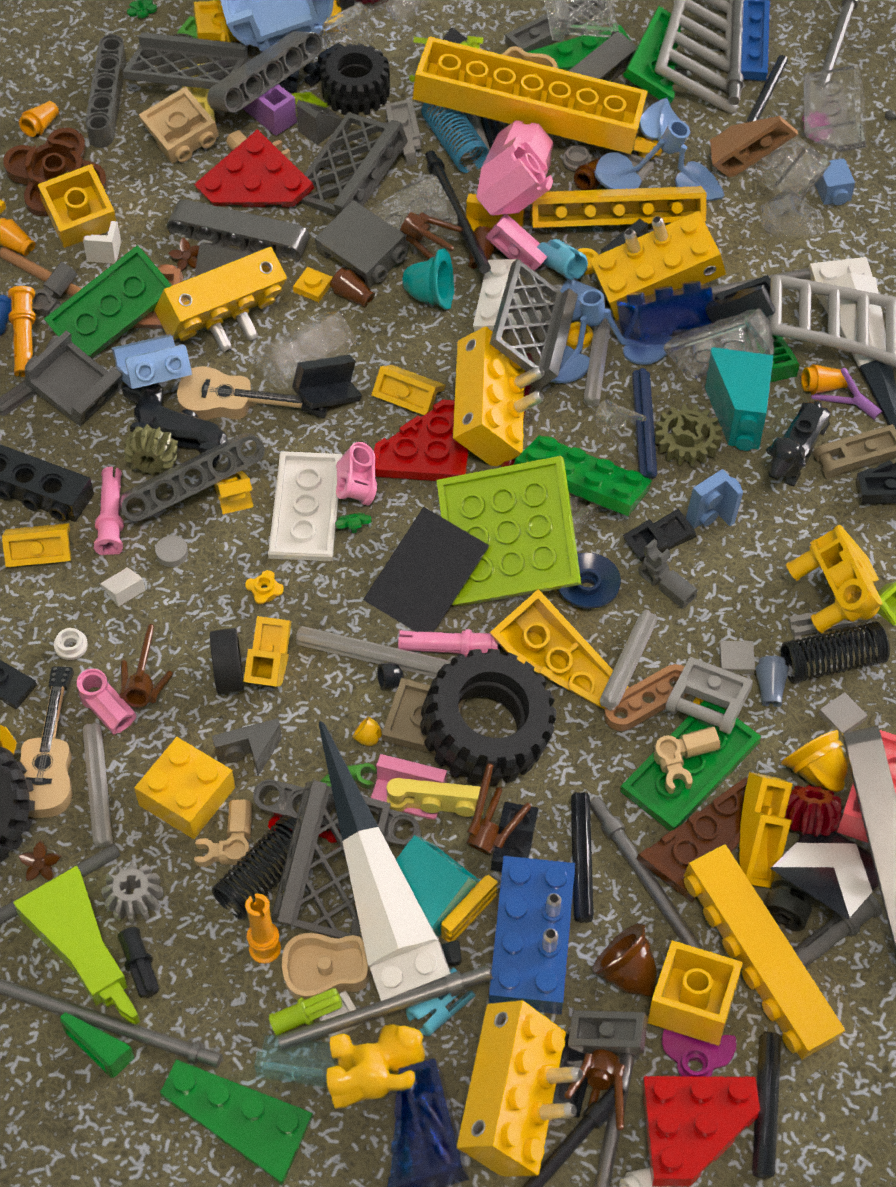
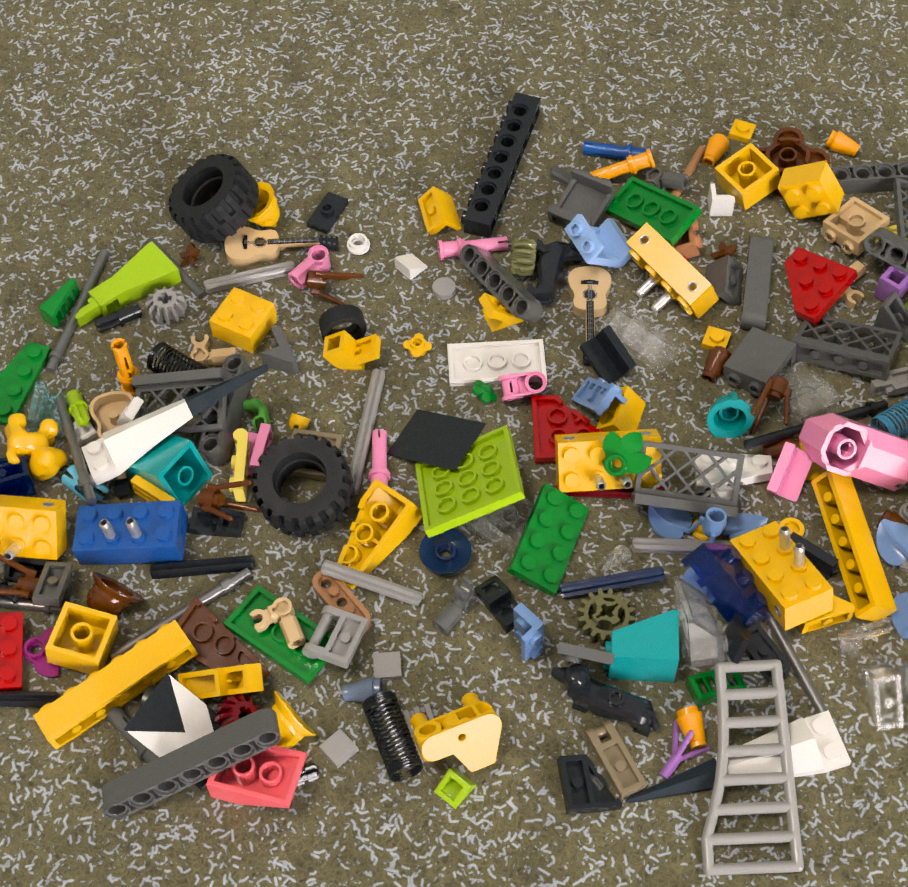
camera: 85 degrees right, 0 degrees up
(125, 146) = (811, 190): none -> yellow brick
(337, 927) = (130, 411): none -> white tile
(389, 400) = (597, 395): none -> medium blue bracket
(389, 675) = (347, 429): black hinge -> none
(507, 362) = (628, 451): none -> green plate
(564, 258) = (779, 508): medium azure arm -> none
(730, 233) = (851, 640): none -> clear plant
(762, 442) = (575, 654): none -> dark grey wing

